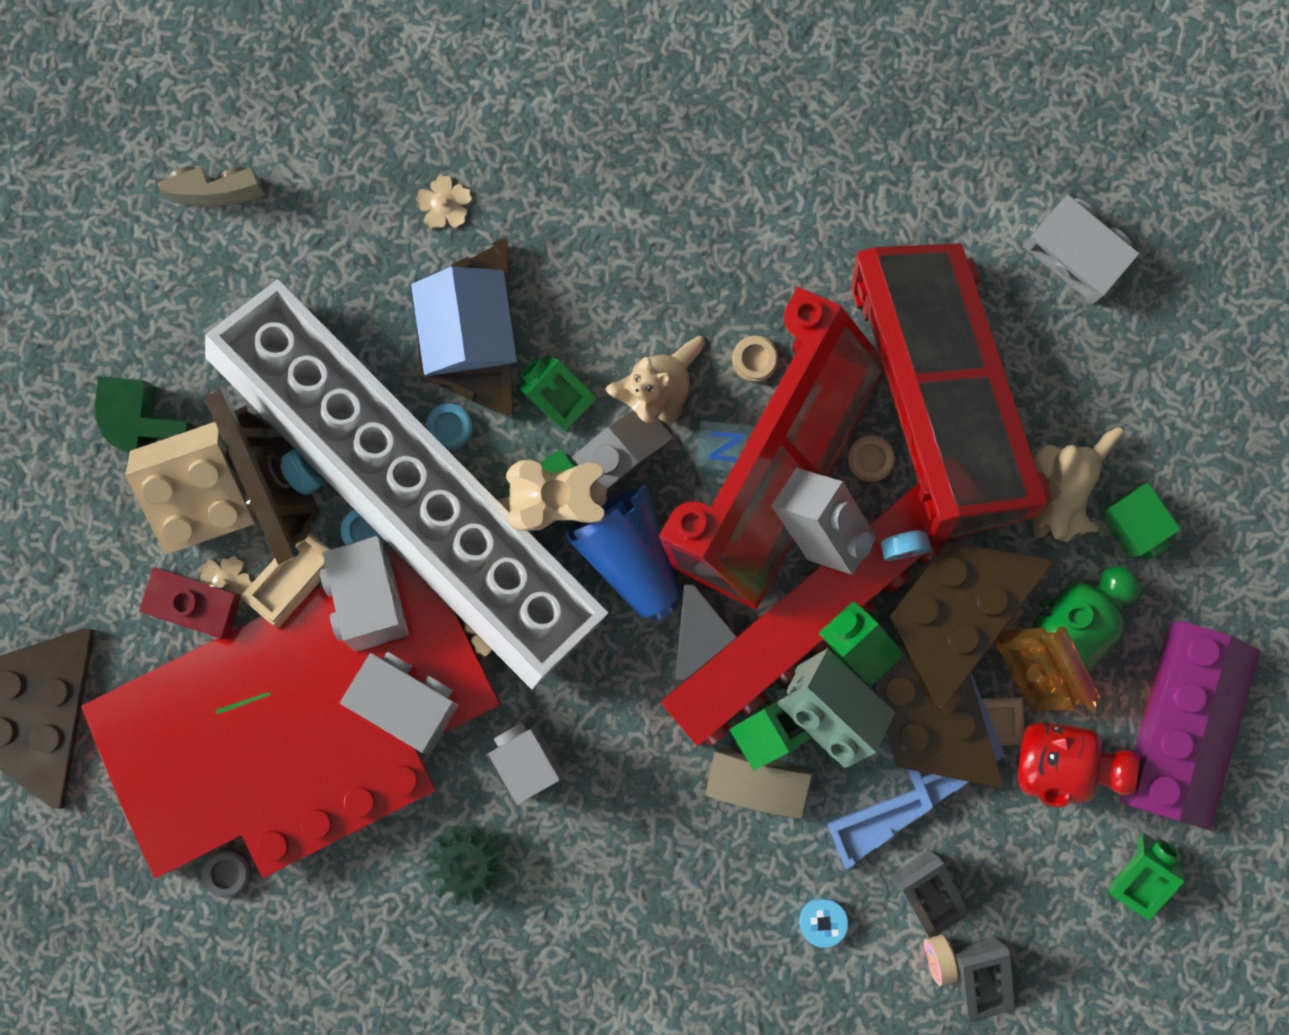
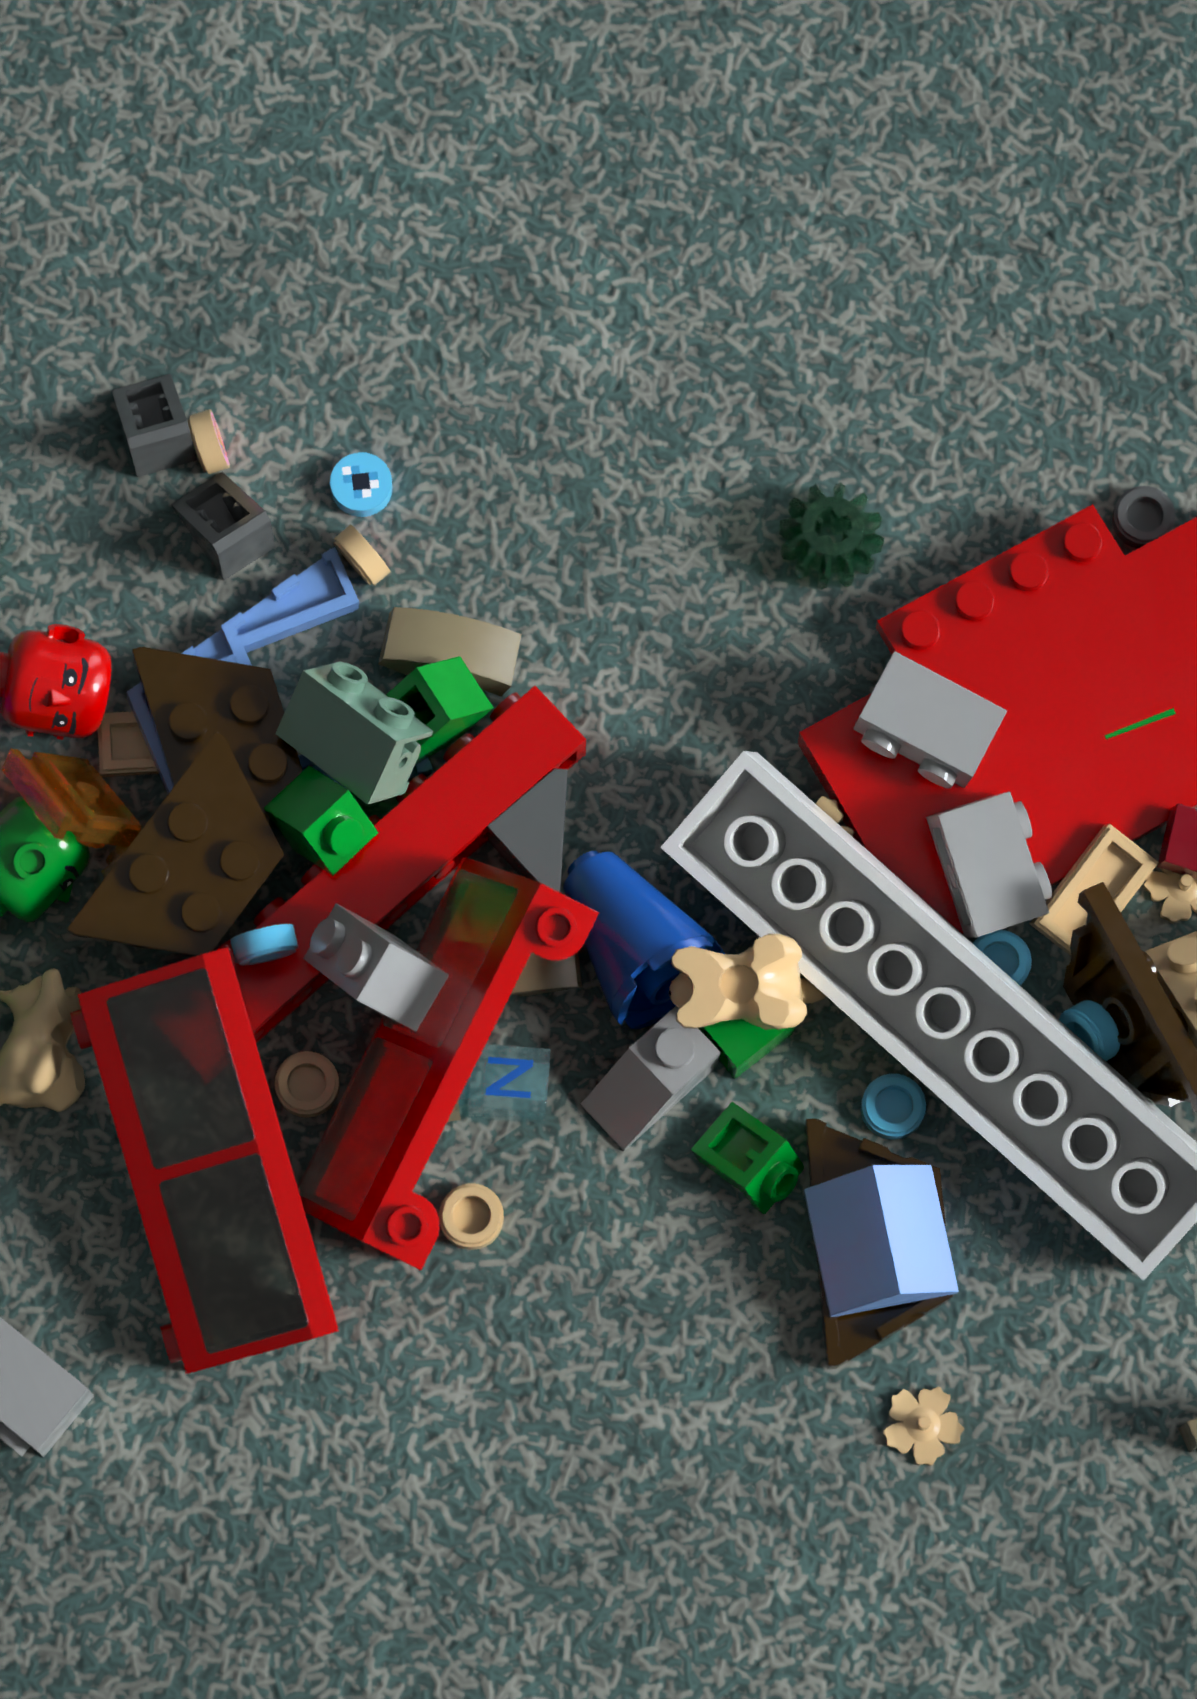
camera: 170 degrees right, 10 degrees down
(525, 762) = (759, 656): light grey brick -> none
(659, 384) = (608, 1164): tan animal -> none
(825, 861) = (361, 555): none -> tan tile

